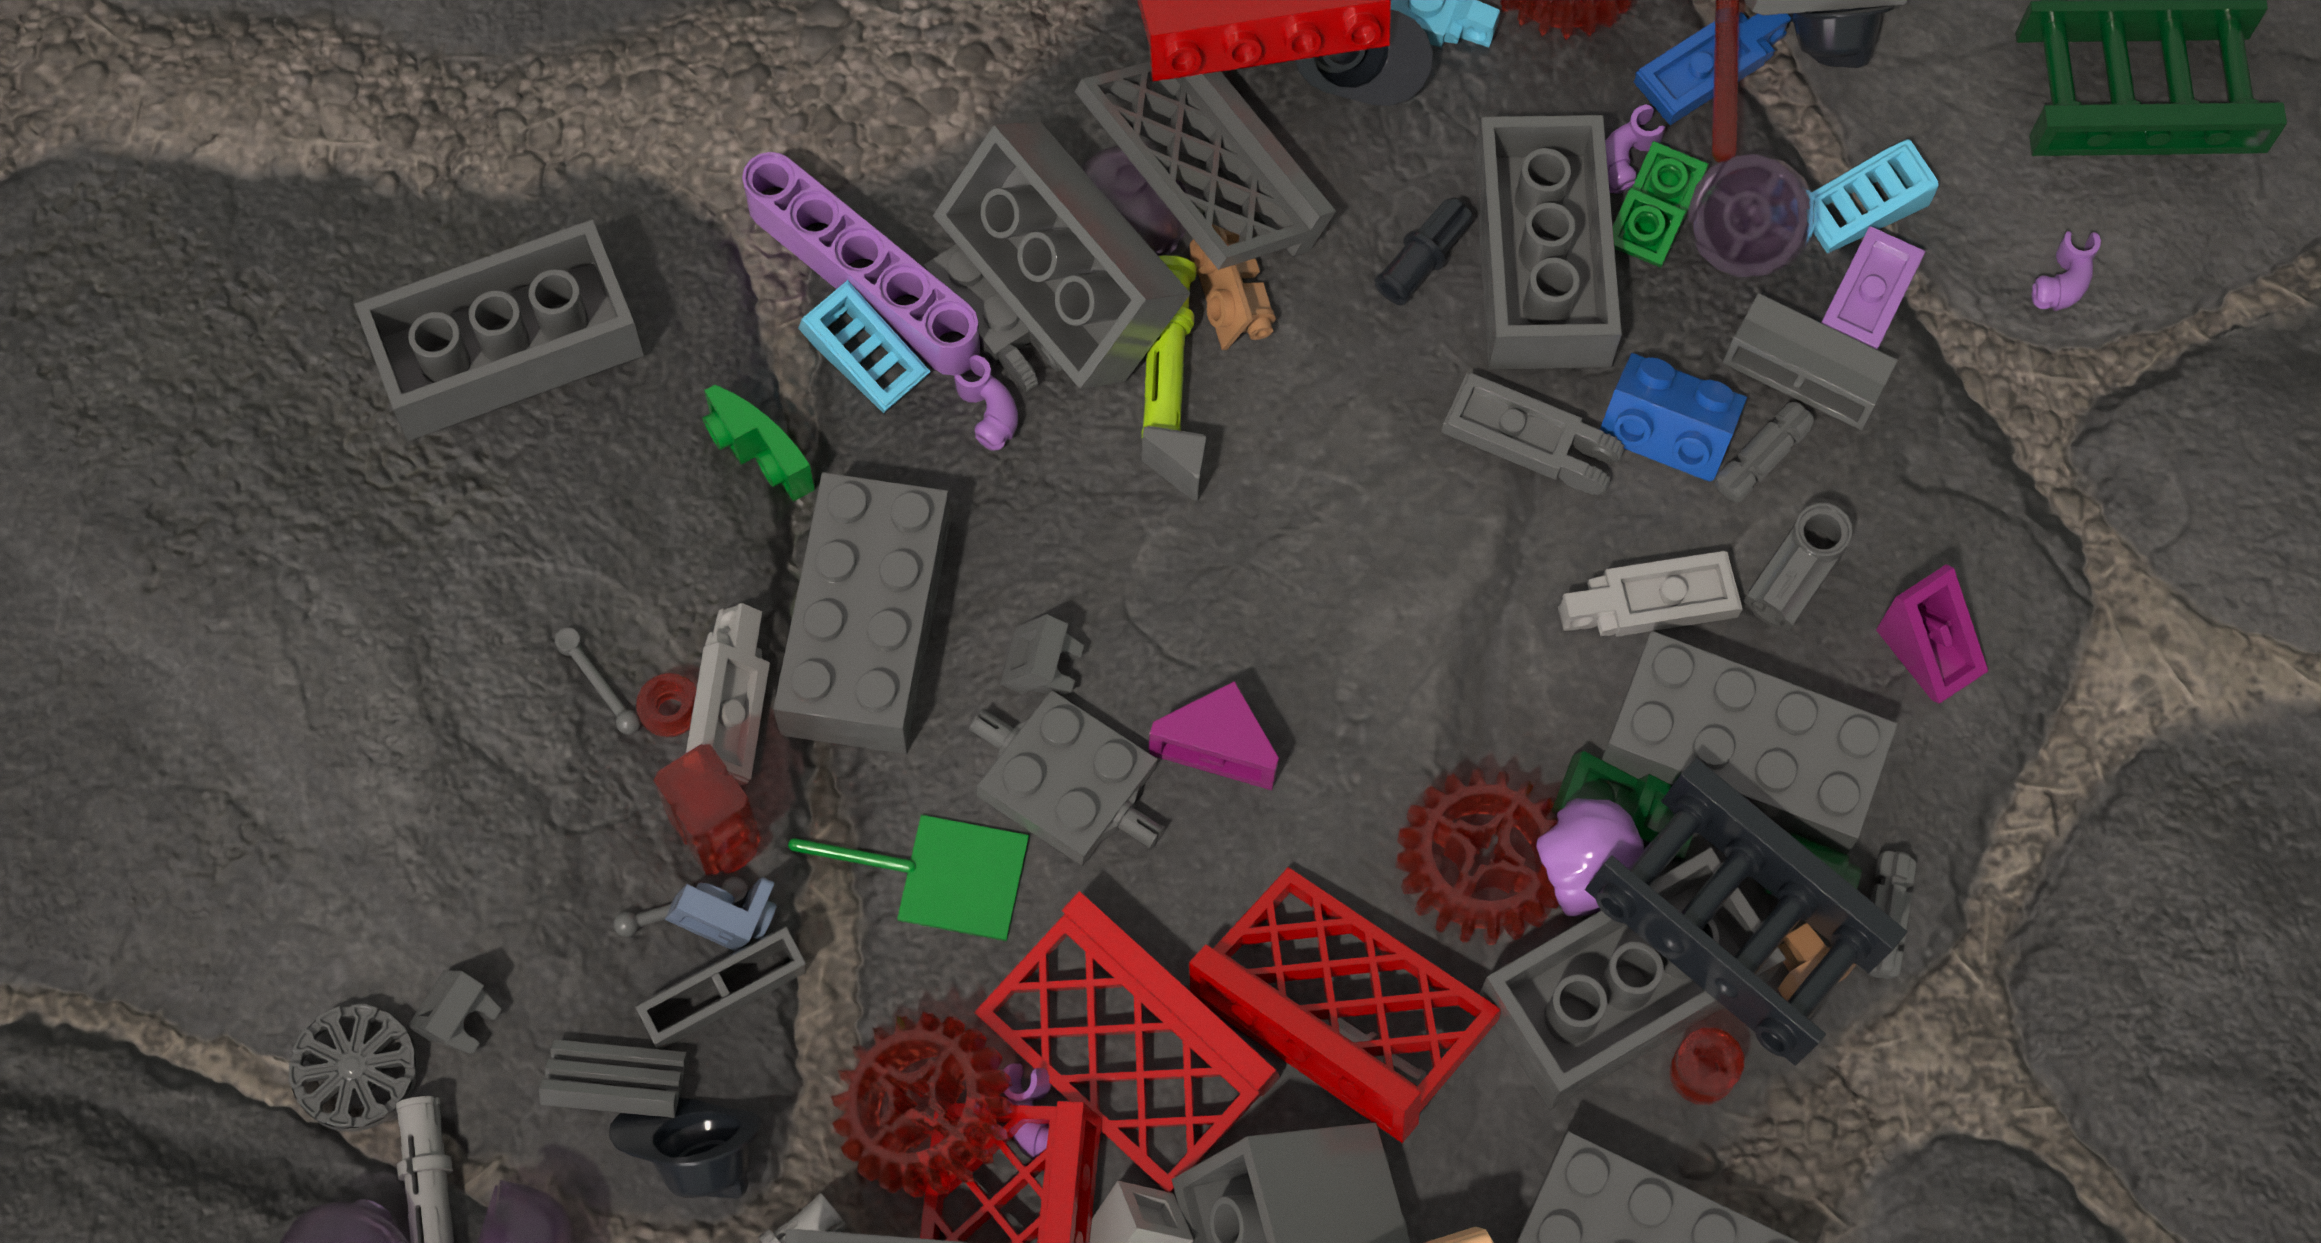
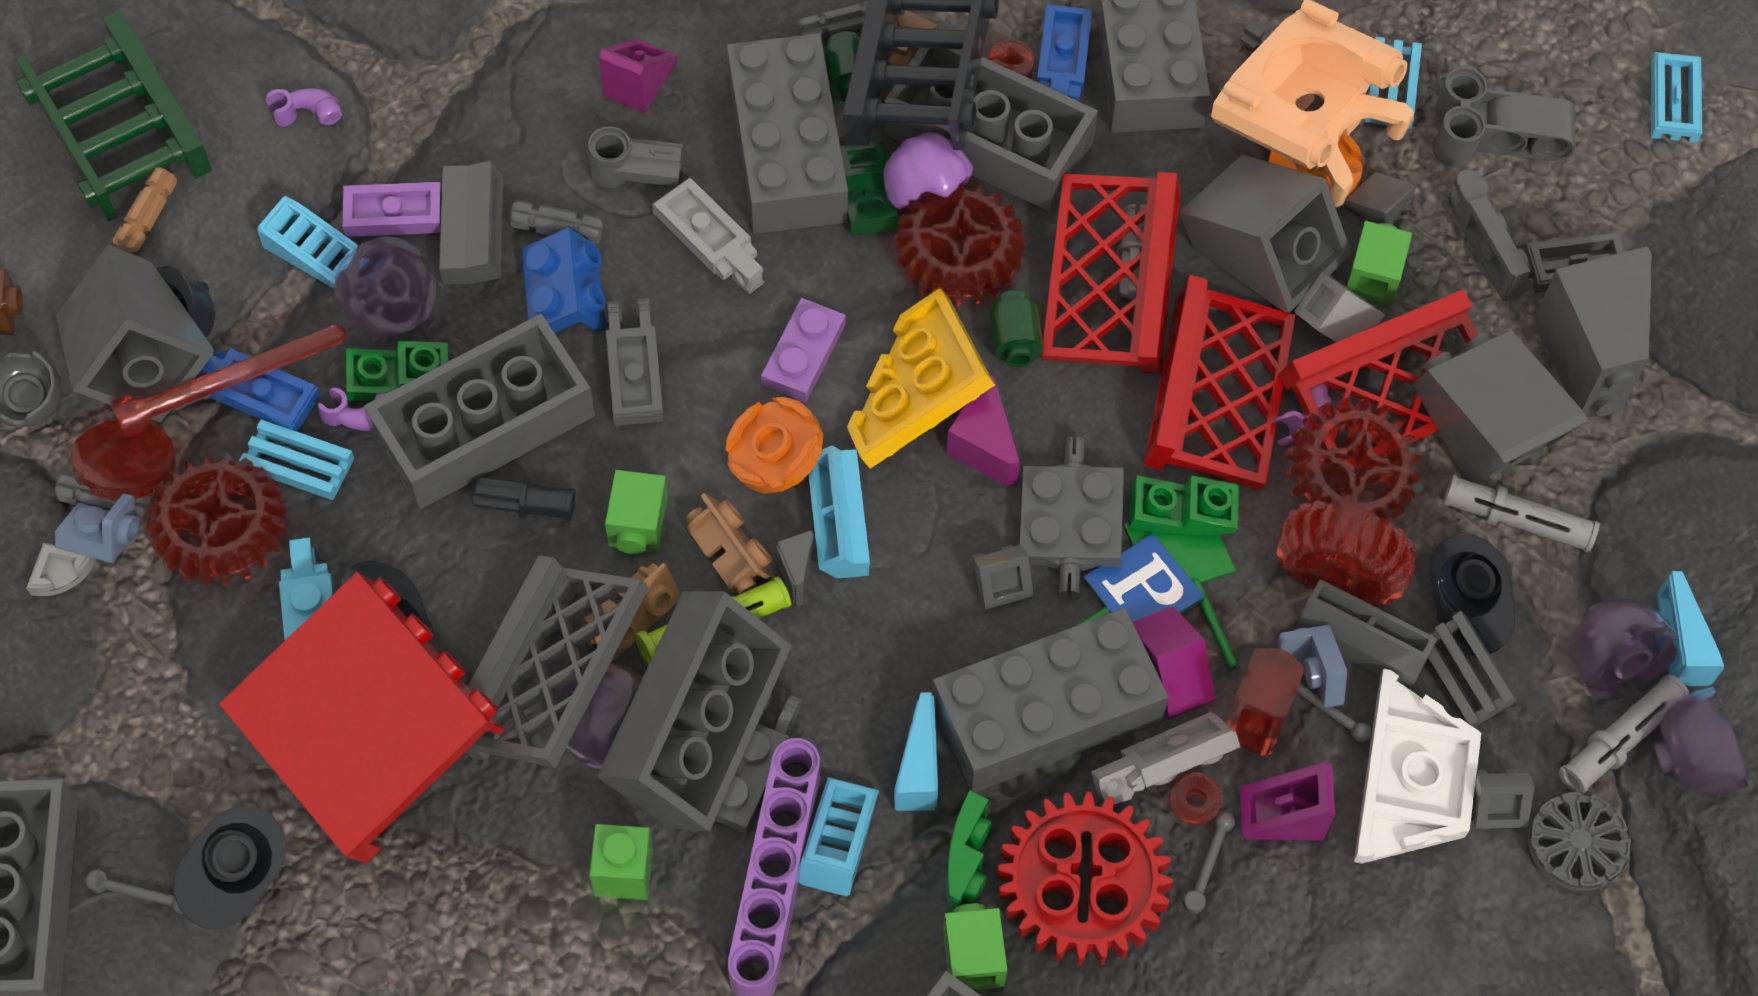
camera: 120 degrees left, 5 degrees down
(540, 942) = (1415, 775): none -> white wing
(591, 785) = (1289, 805): none -> magenta slope
(620, 578) = (1132, 882): none -> red gear
(656, 394) = (975, 946): none -> bright green brick
(815, 1012) = (1347, 551): none -> clear red gear
(833, 769) = (1179, 660): none -> magenta slope
(877, 452) = (917, 777): none -> medium azure slope
(932, 795) = (1143, 583): none -> blue piece
(953, 127) = (621, 862): none -> bright green brick
(1001, 411) = (829, 709): medium lavender arm -> none
(1001, 902) = (1195, 508): none -> green slope
(1217, 539) = (839, 514): none -> medium azure piece
(1263, 420) = (720, 528): none -> medium nougat hinge
(1324, 705) = (920, 380): none -> yellow plate
(1333, 851) = (1016, 328): none -> dark green brick
(1336, 513) = (774, 445): none -> orange tile
(1338, 339) = (636, 512): none -> bright green brick
(1448, 621) = (803, 350): none -> medium lavender plate
(1635, 42) = (305, 443): none -> medium azure tile
(1689, 1140) = (1064, 49): none -> blue hinge
(2003, 61) = (145, 210): none -> medium nougat axle

